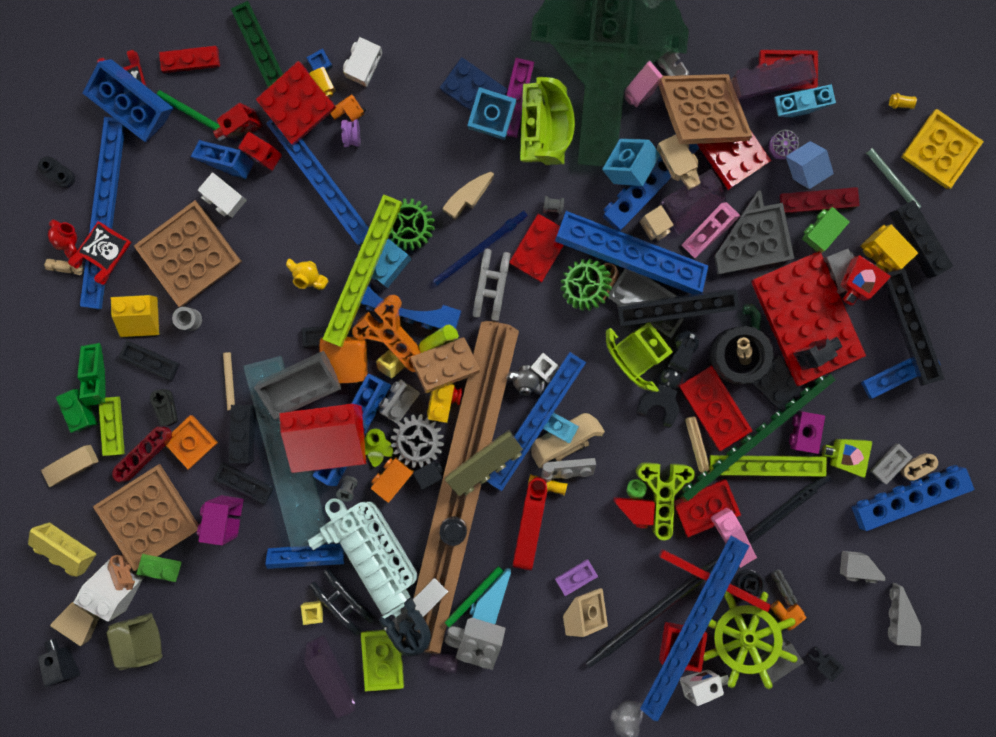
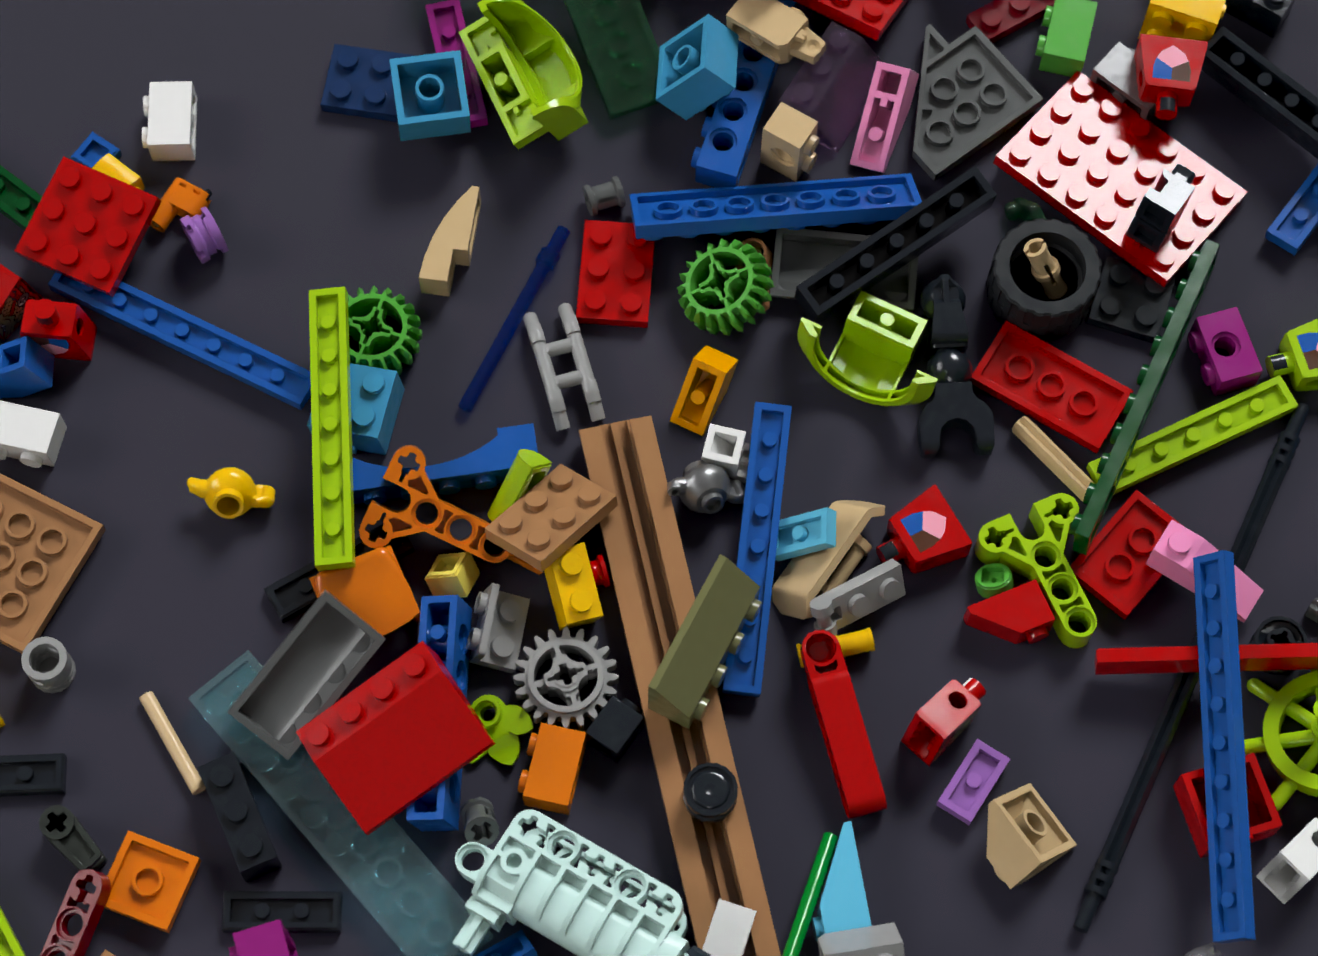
camera: 25 degrees left, 20 degrees down
(551, 329) = (703, 389): none -> light orange slope
(572, 548) = (943, 719): none -> red torso
(616, 451) = (925, 534): none -> red torso

